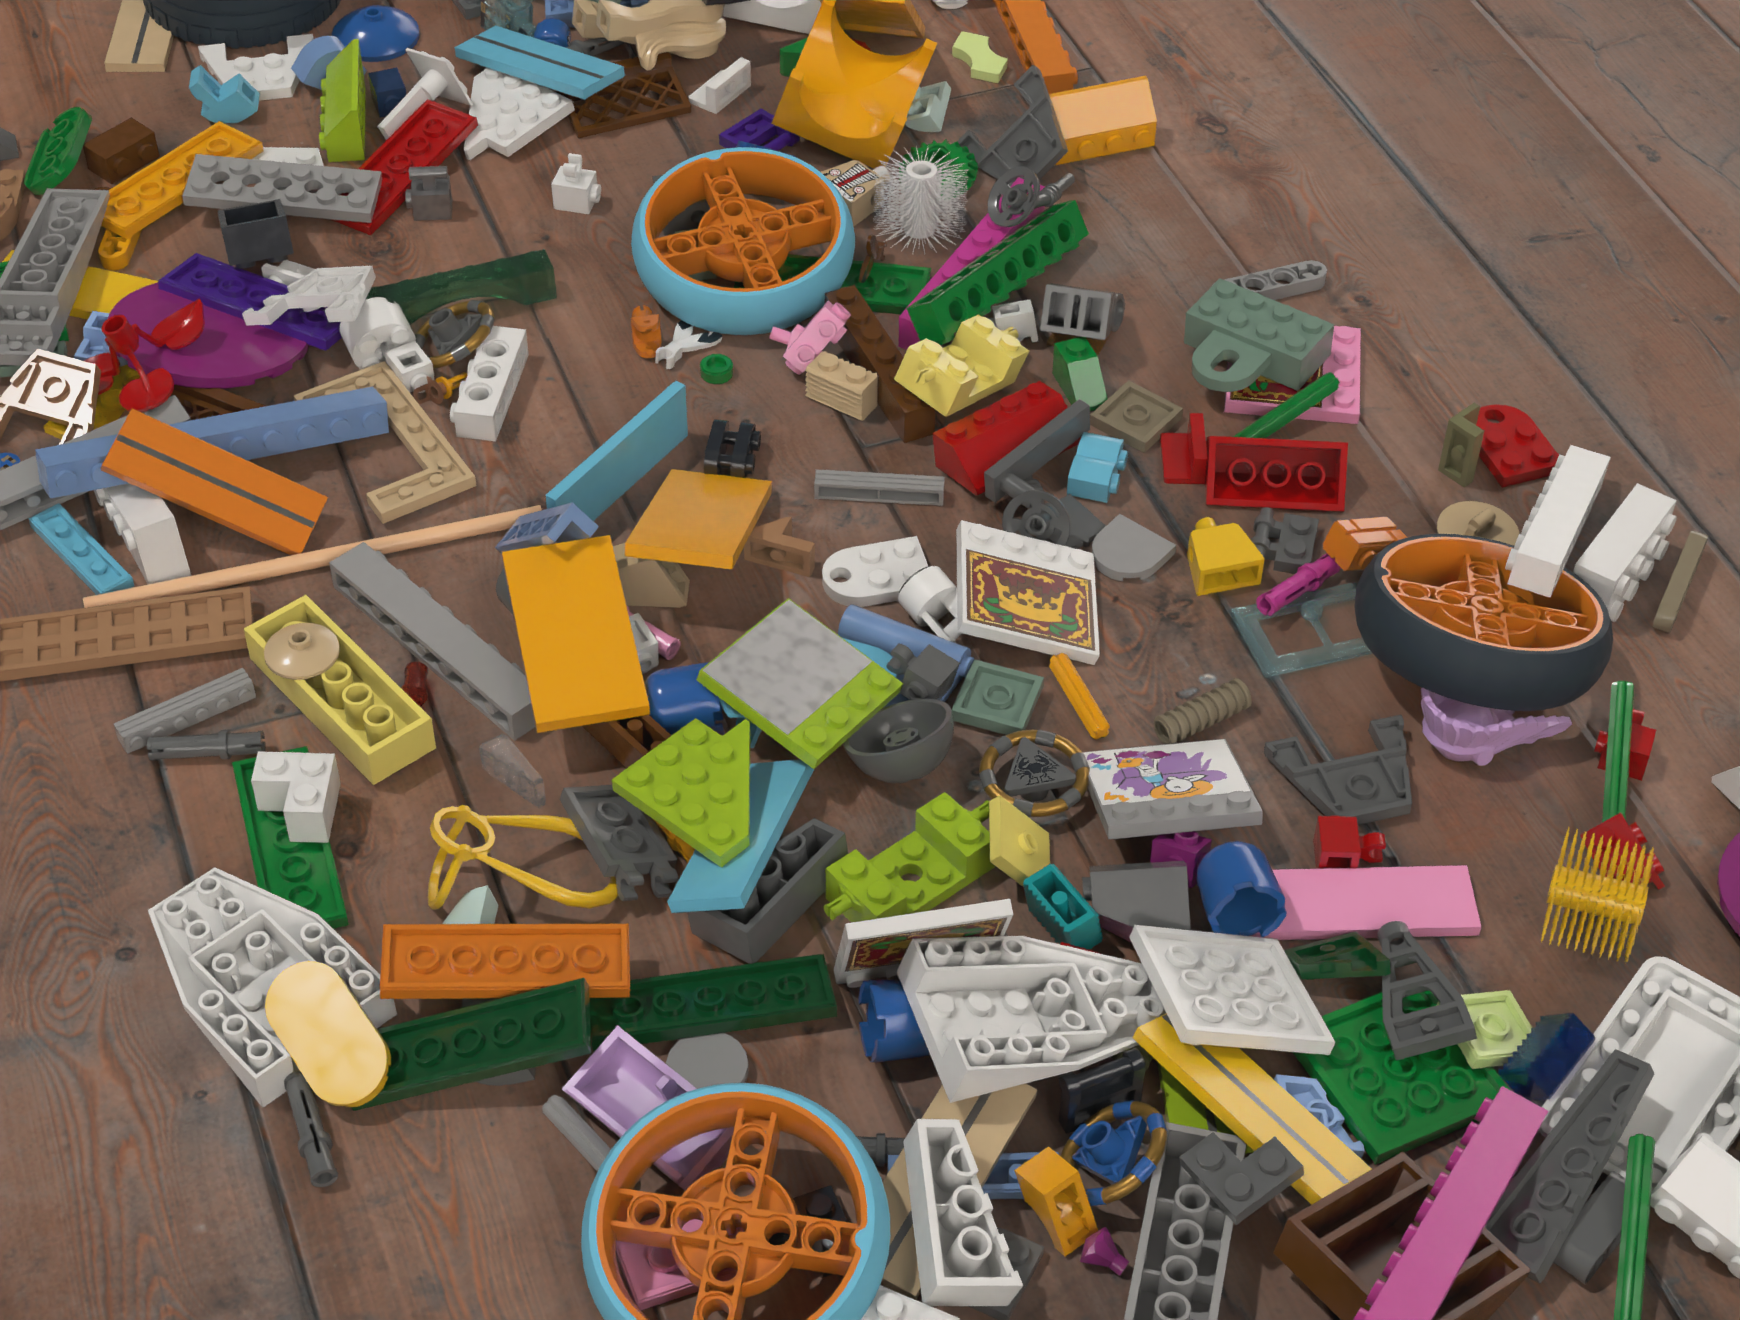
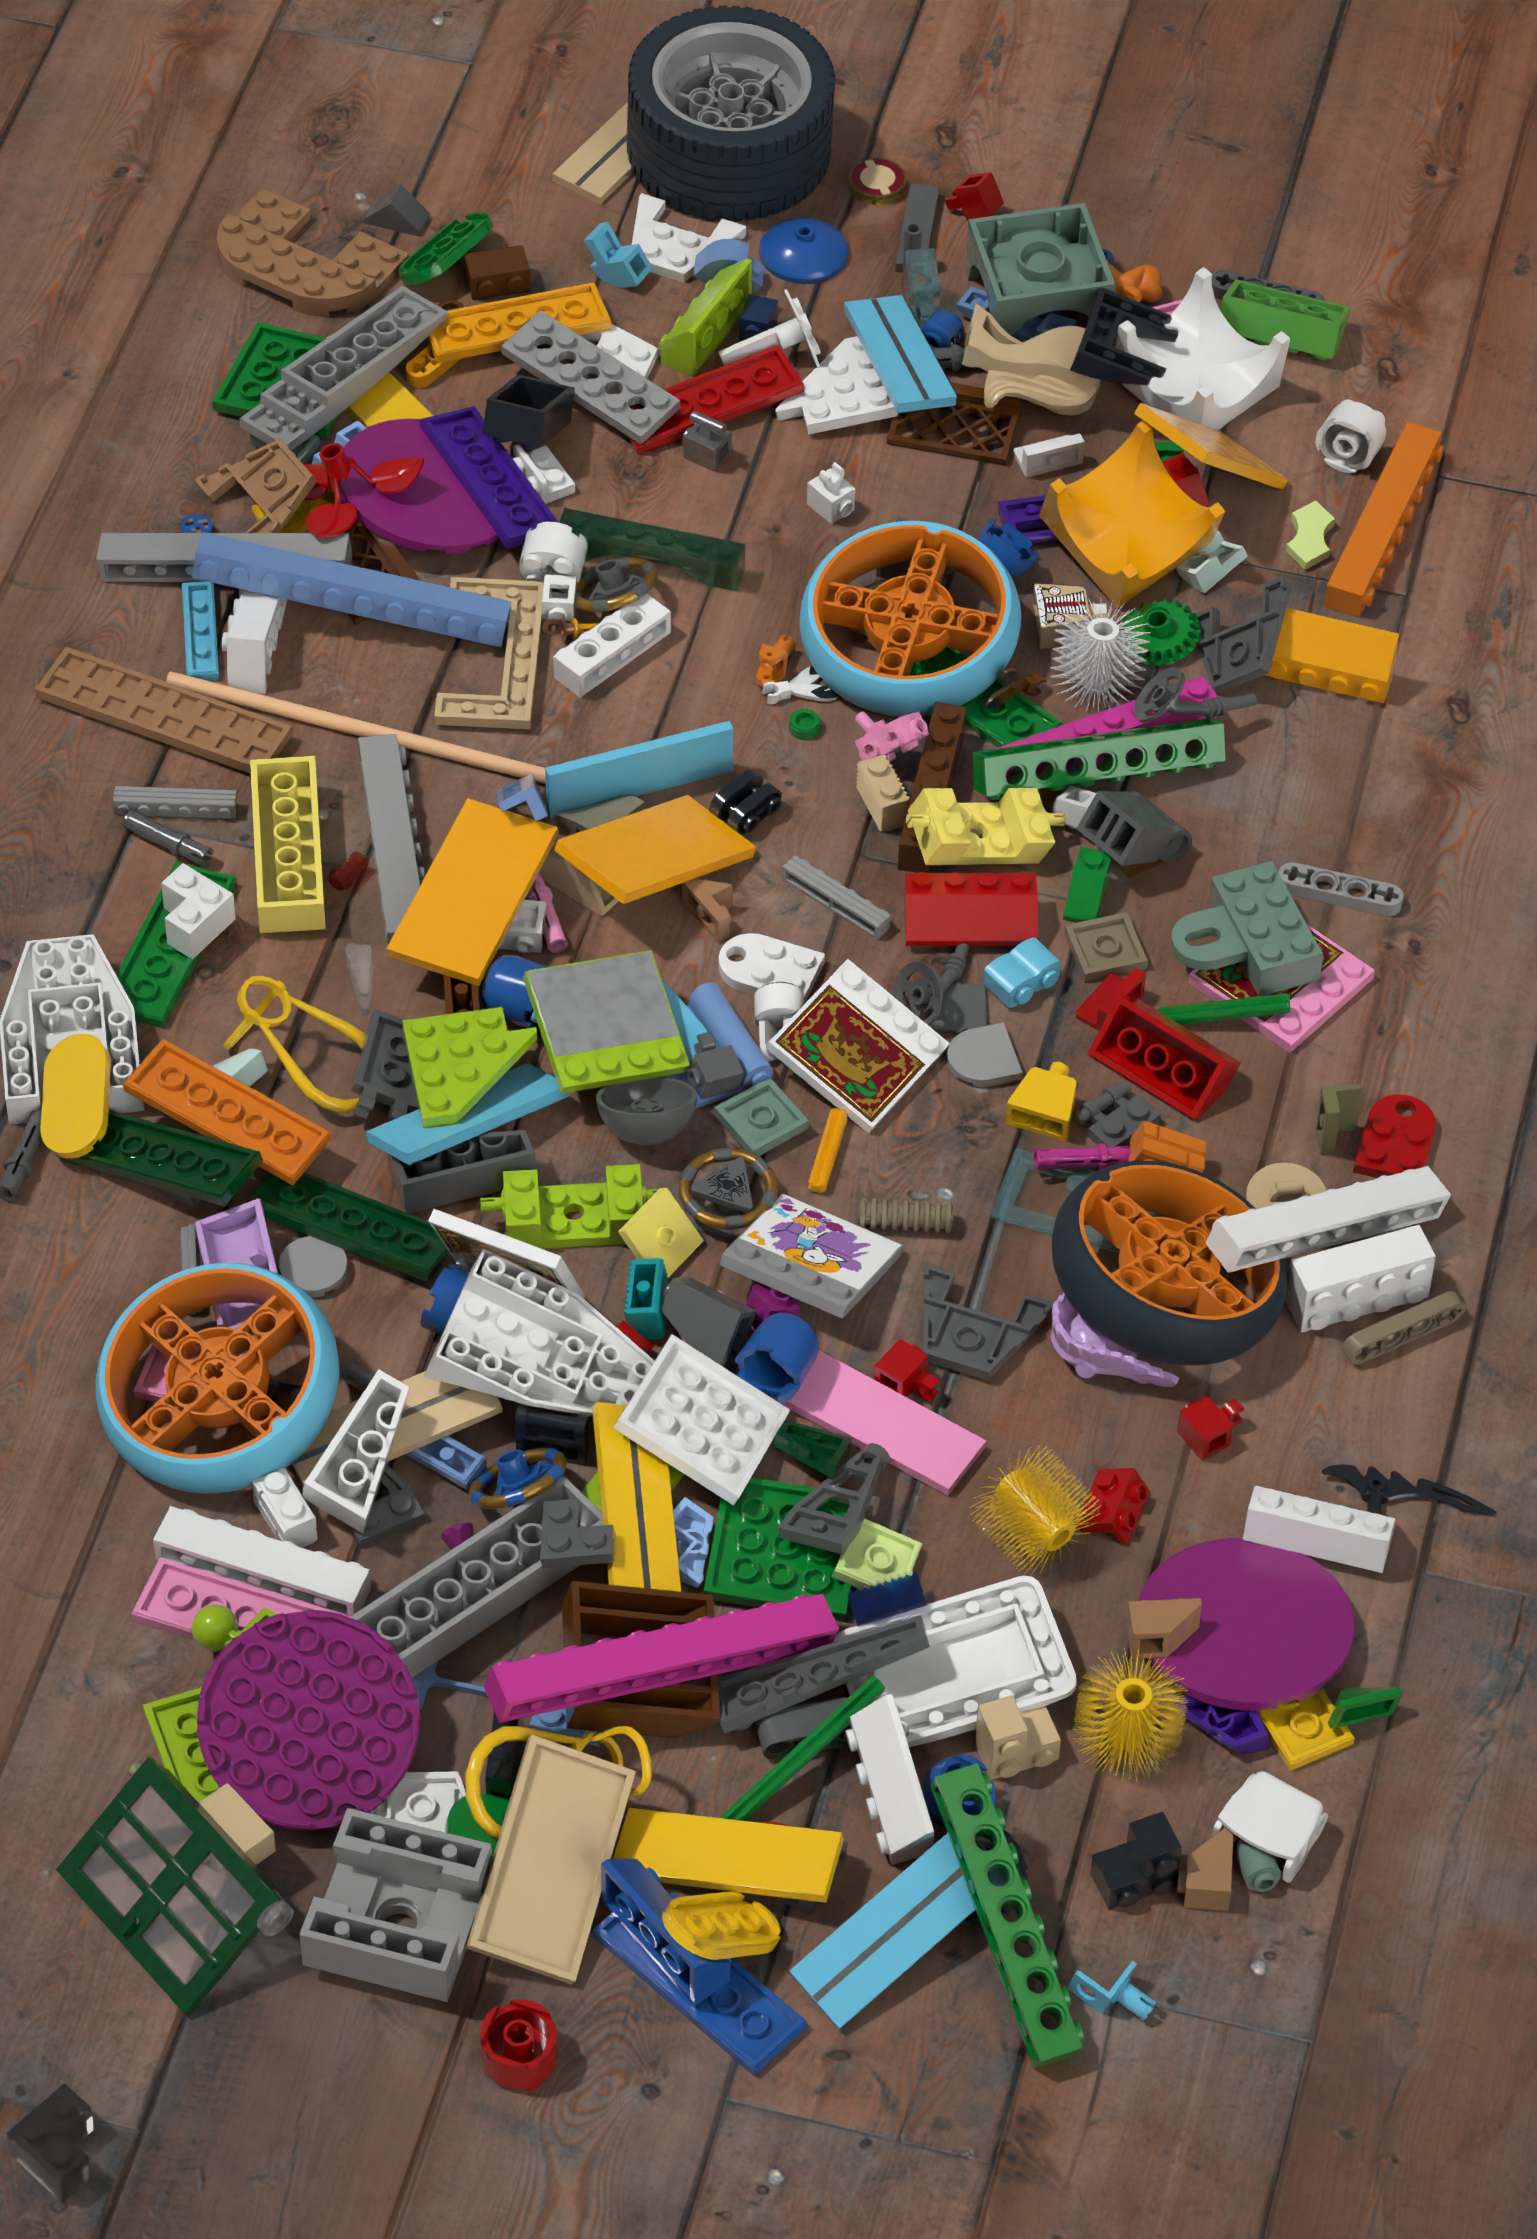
camera: 35 degrees right, 5 degrees up
(214, 483) = (319, 627): orange tile -> none
(301, 651) = (275, 800): tan dish -> none
(337, 288) = (538, 496): white wing -> none
(620, 516) = (599, 813): none -> dark tan slope
(1010, 472) = (973, 933): dark grey piece -> none
(1058, 1199) = (450, 1485): light orange arch -> none
(1618, 749) = (1179, 1422): green axle -> none

